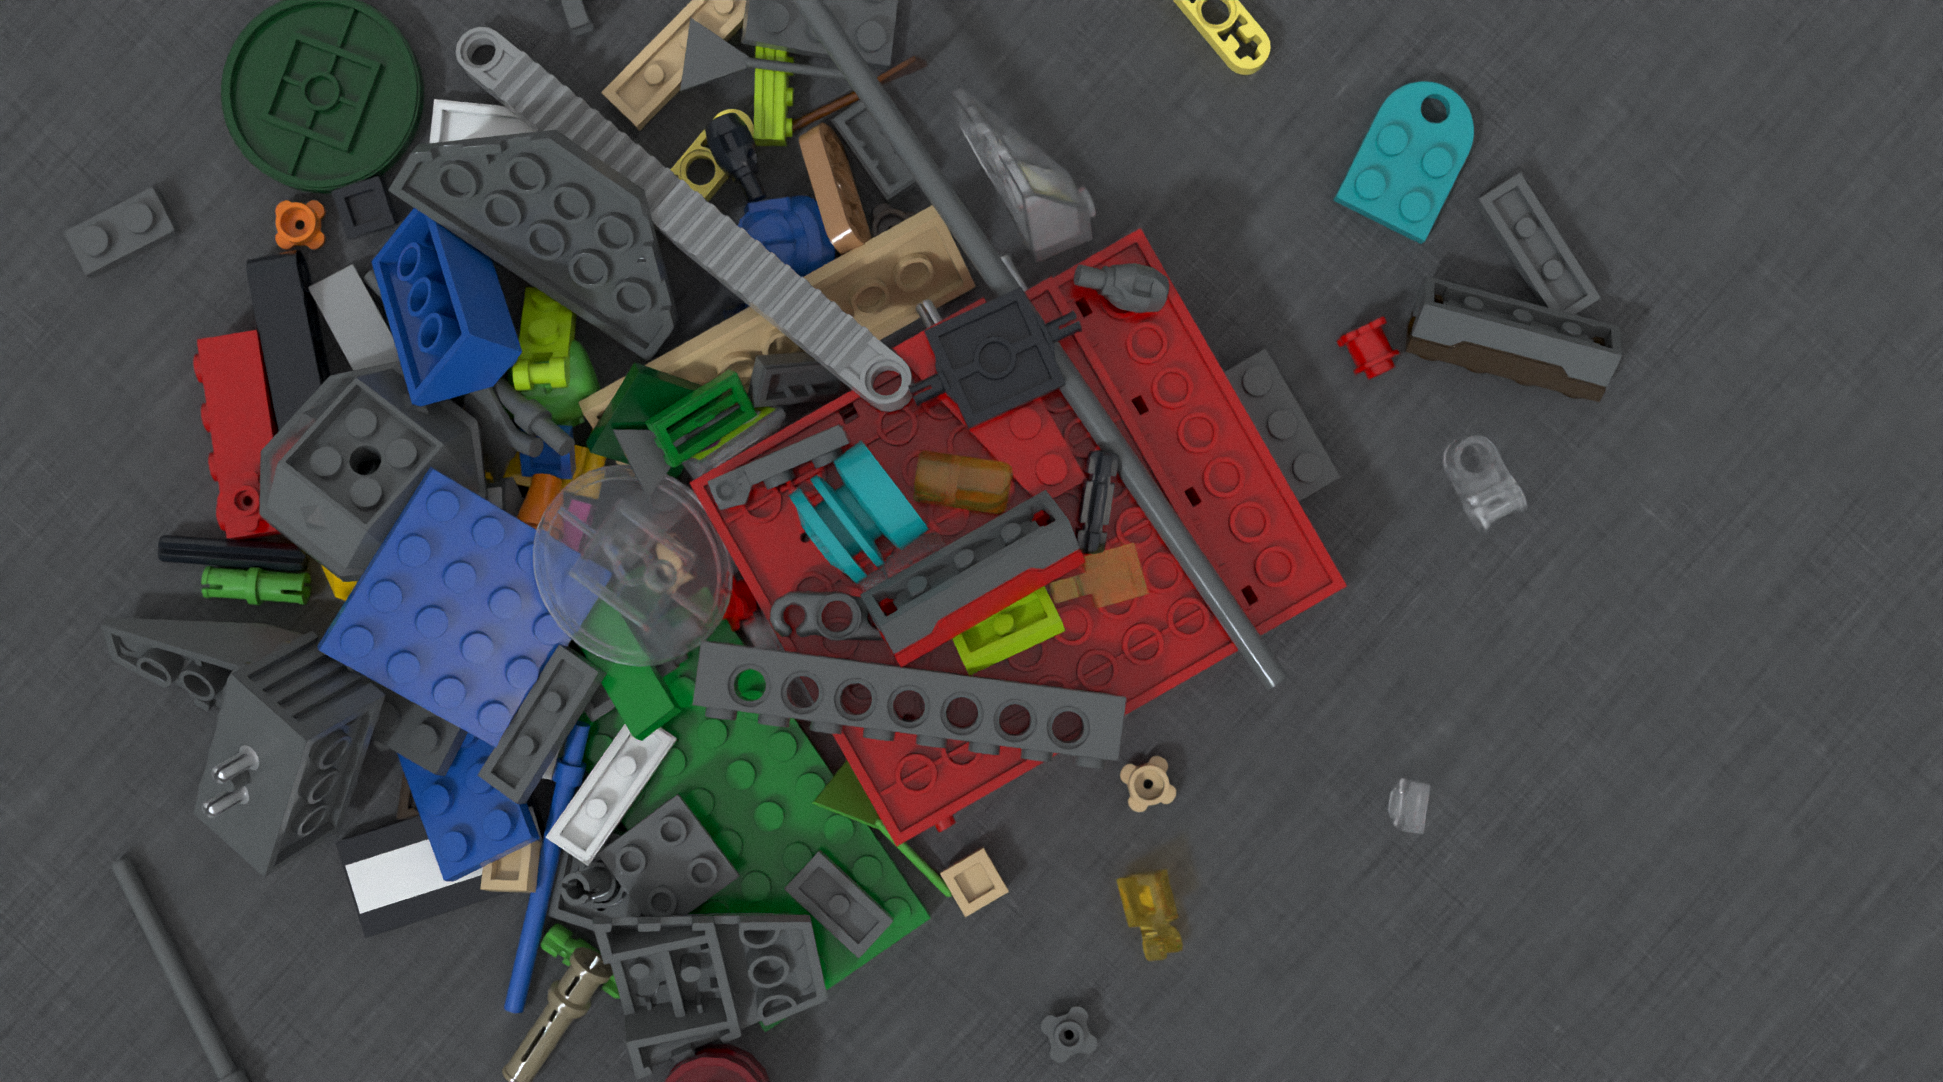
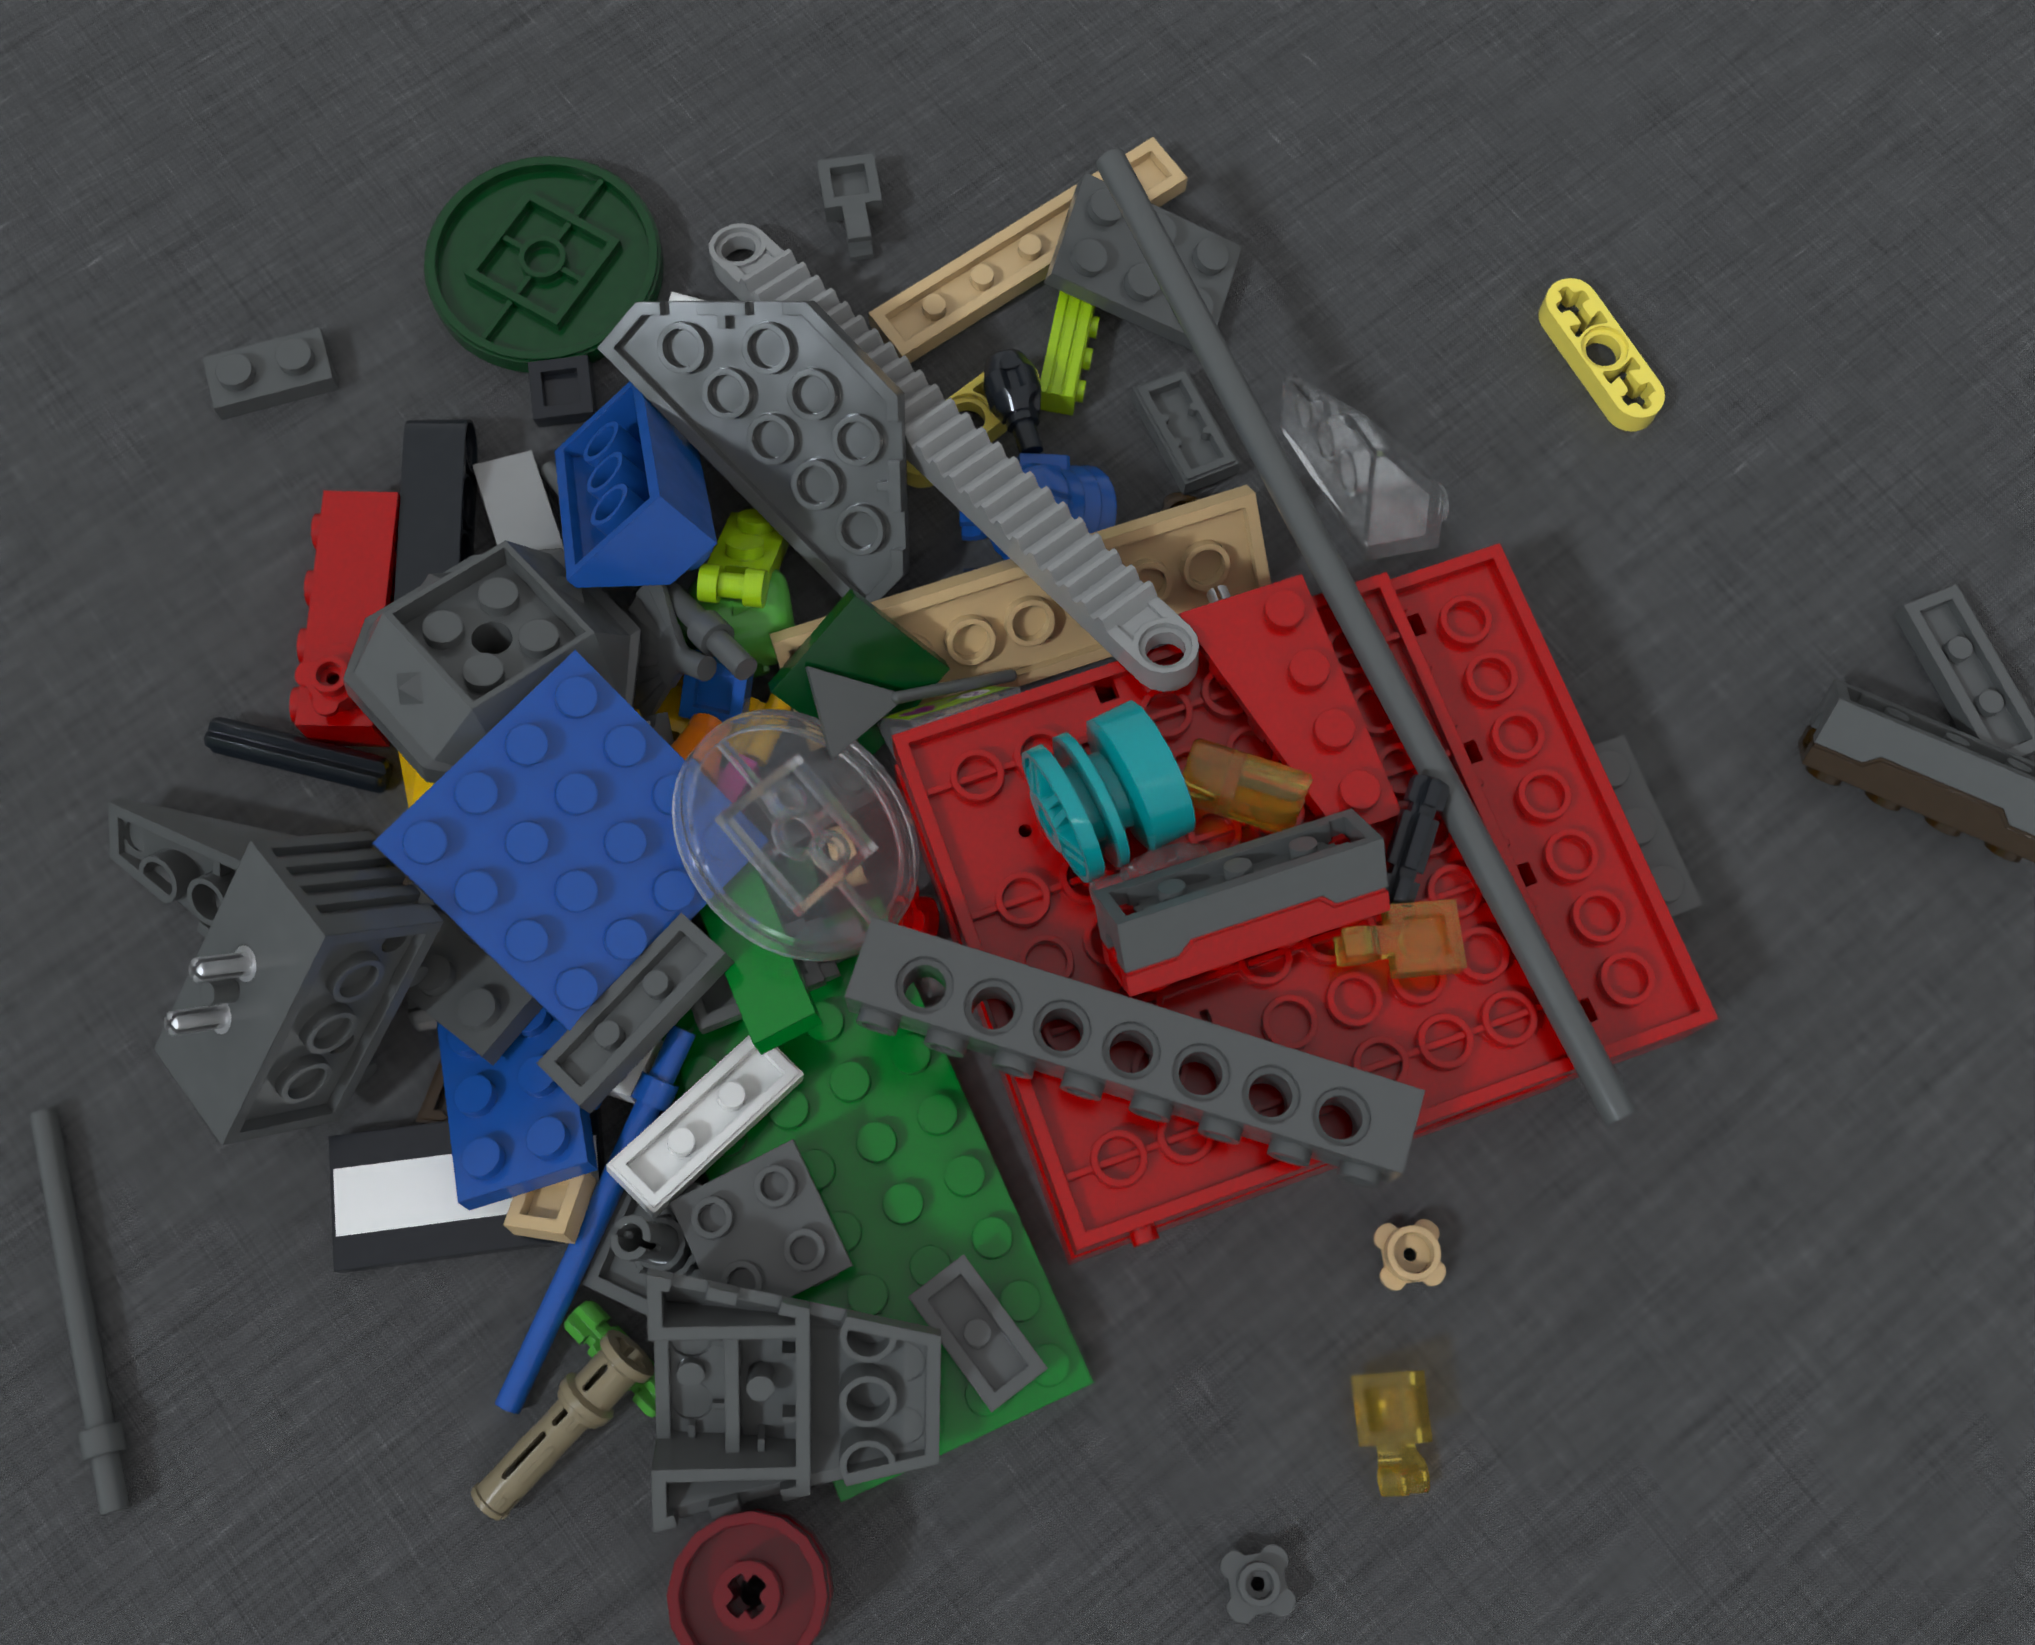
camera: 10 degrees right, 15 degrees down
(256, 585) = (315, 797): bright green pin -> none
(286, 219) = (475, 384): orange plate -> none
(664, 438) = (871, 689): green tile -> none
(713, 58) = (1007, 297): dark grey piece -> none
(776, 468) = (1011, 724): dark grey hinge -> none
(791, 380) = (1036, 655): dark grey plate -> none
(813, 604) = (1023, 906): dark grey piece -> none
(834, 188) = (1125, 455): medium nougat beam -> none
(847, 797) = (1014, 1197): bright green piece -> none
(909, 66) = (1237, 339): reddish brown piece -> none
(974, 881) = (1160, 1342): tan plate -> none
(995, 358) = (1311, 636): black plate -> none
(1009, 631) = (1275, 982): lime plate -> none
(1126, 285) = (1481, 594): dark grey piece -> none
(1370, 349) = (1754, 755): red brick -> none
(1408, 162) = (1813, 558): teal plate -> none
(1409, 805) = (1761, 1344): clear plate -> none
(1484, 484) = (1886, 944): clear piece -> none

